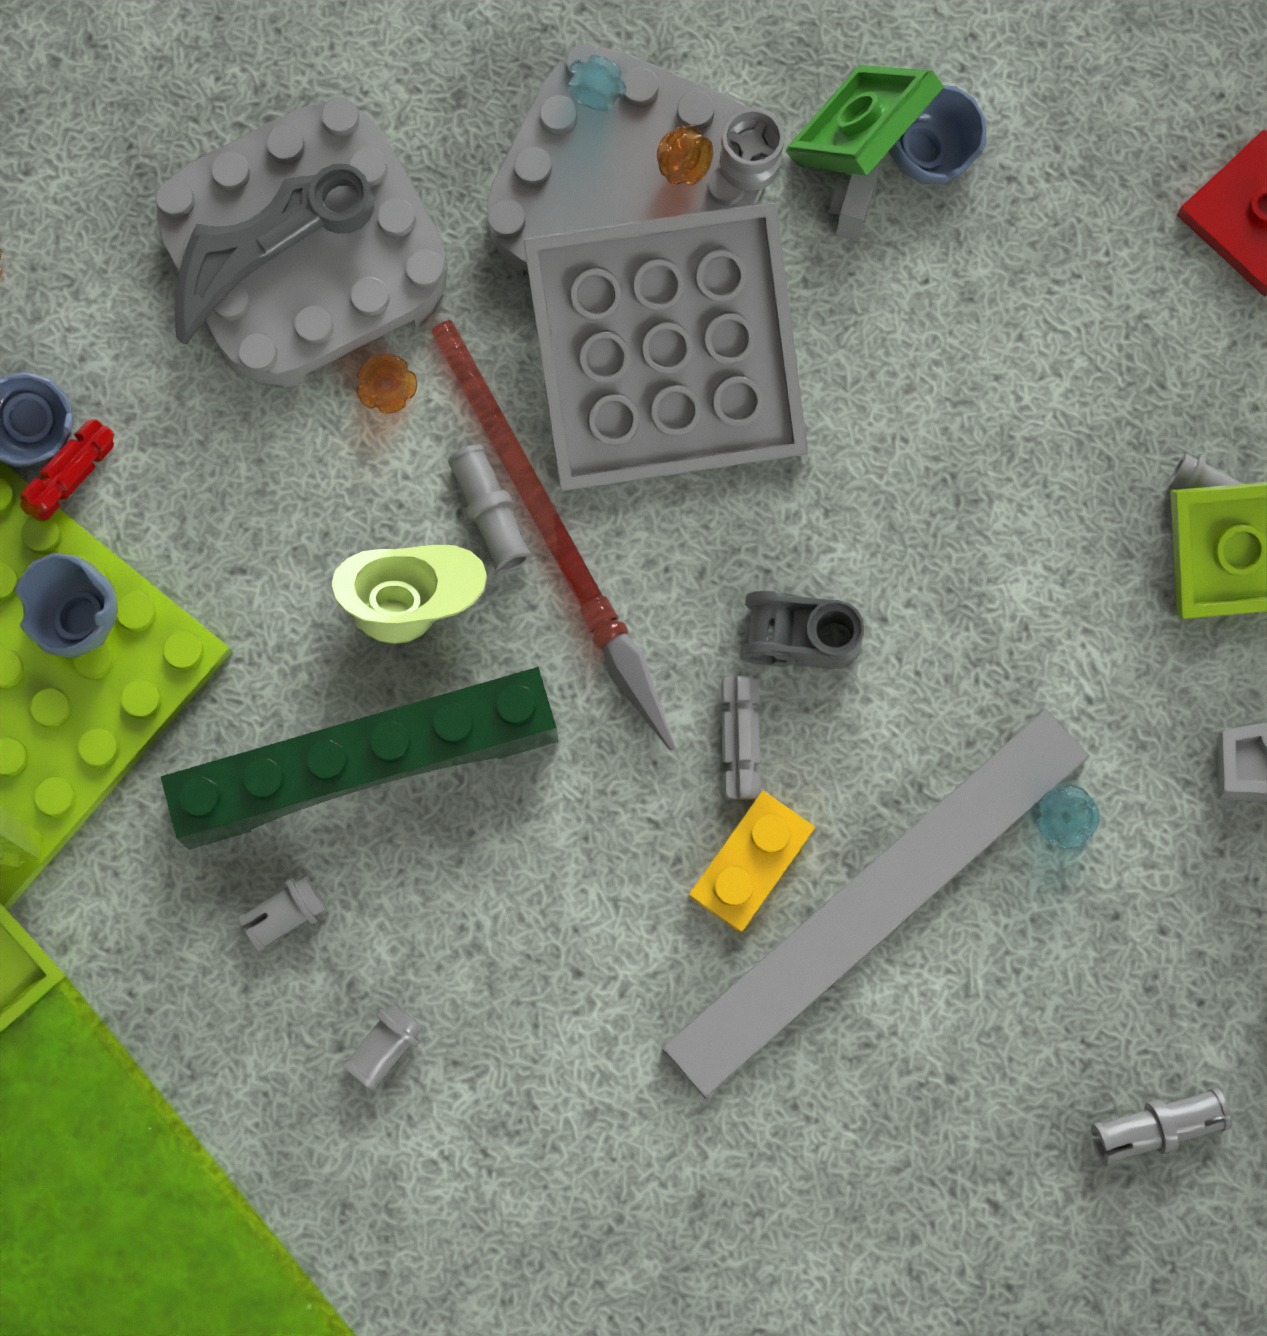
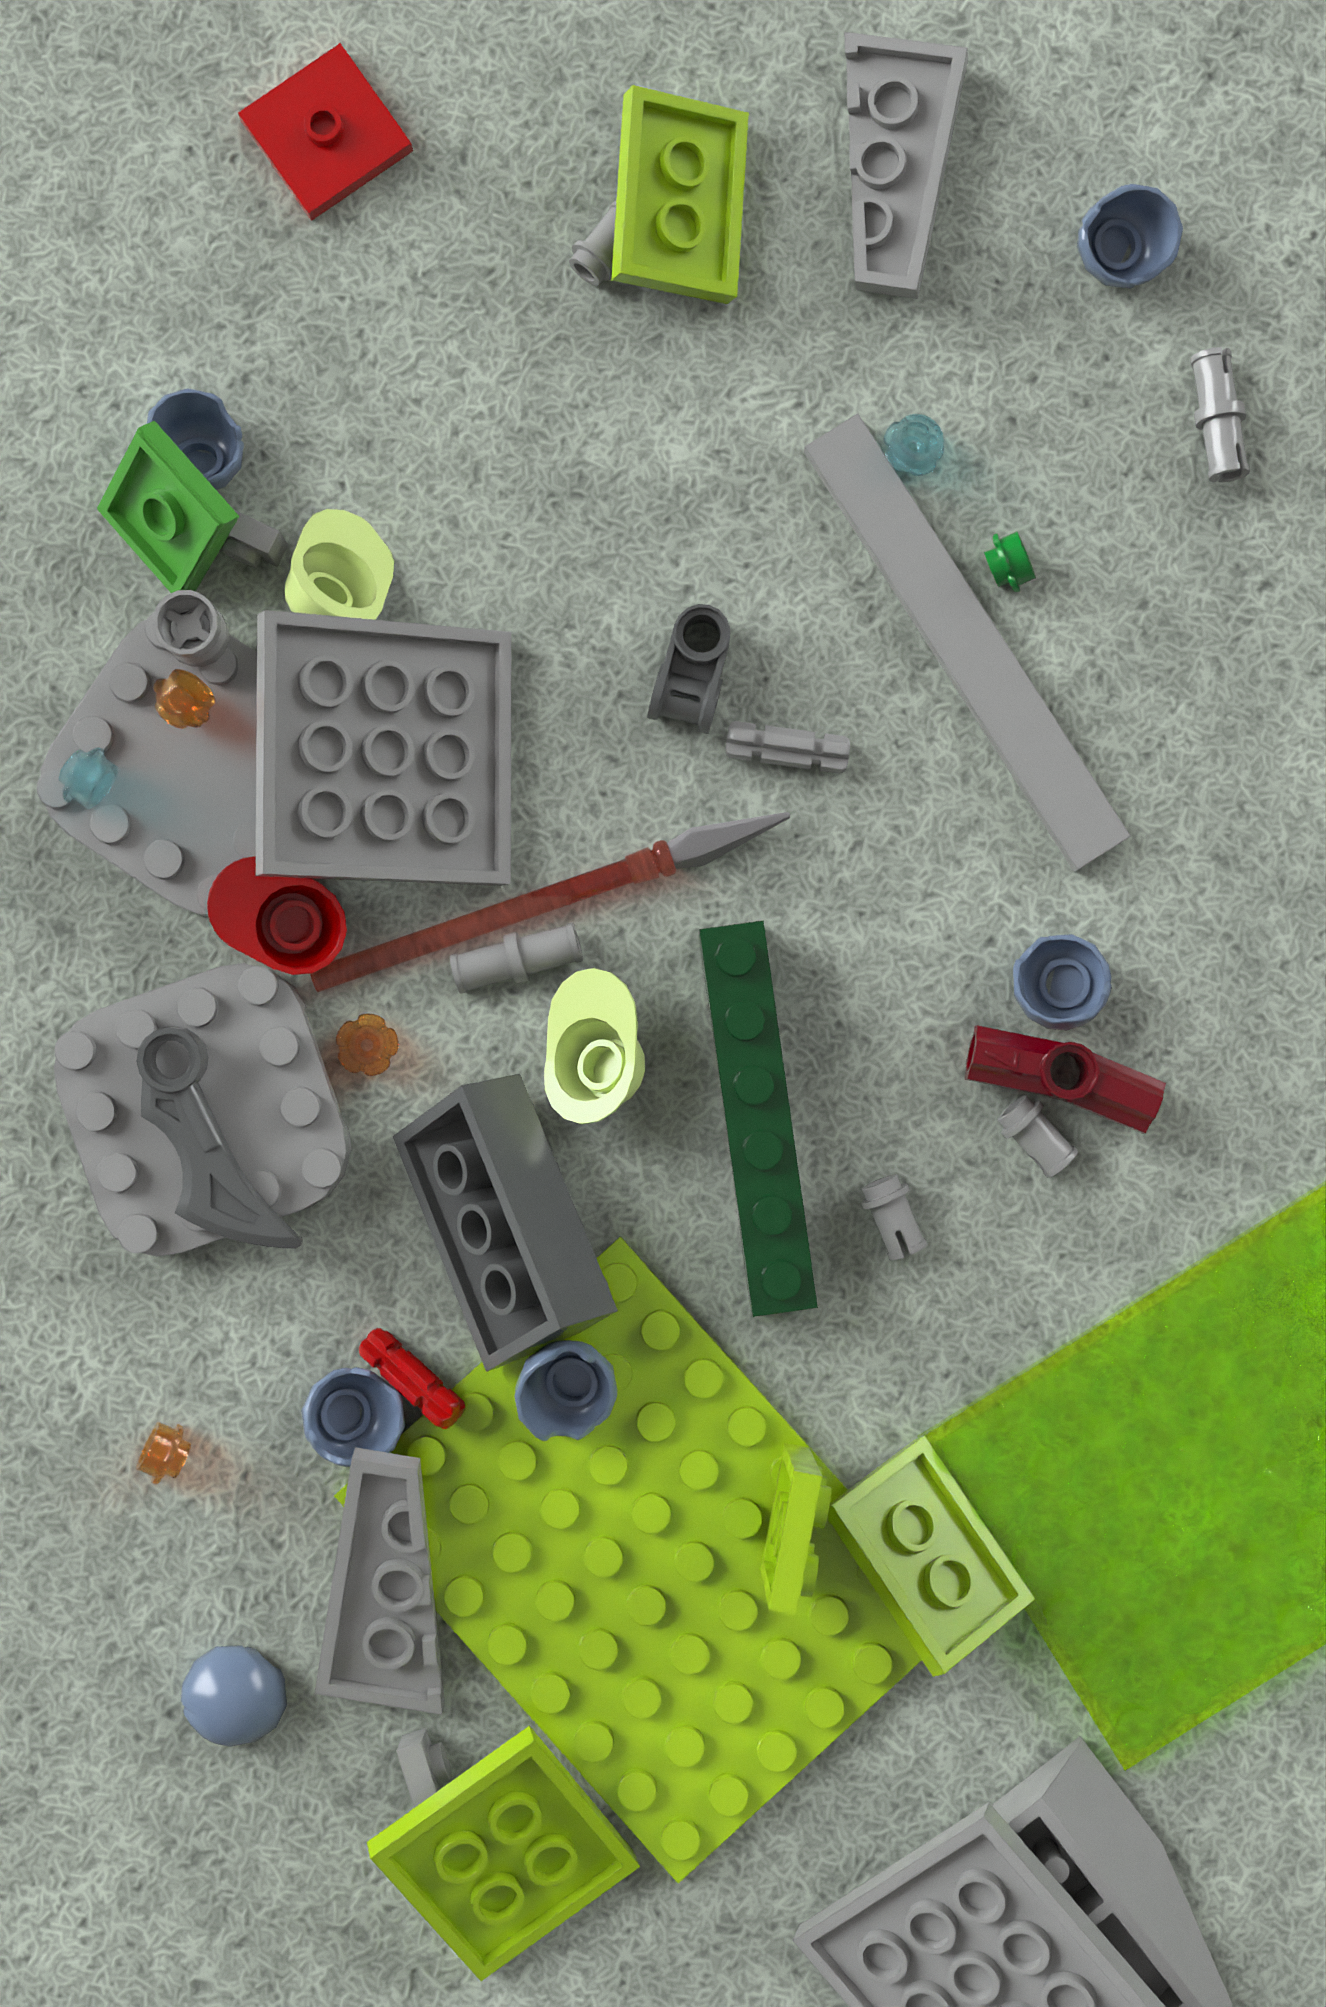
camera: 80 degrees left, 10 degrees up
(229, 530) = (503, 1220): none -> dark grey slope
(452, 1019) = (1102, 1087): none -> dark red piece
(487, 278) = (276, 920): none -> red cap
(542, 1066) = (1078, 984): none -> sand blue hair
(751, 862) = (910, 756): yellow plate -> none
(840, 284) = (339, 567): none -> yellowish green piece
(967, 931) = (1009, 561): none -> green plate

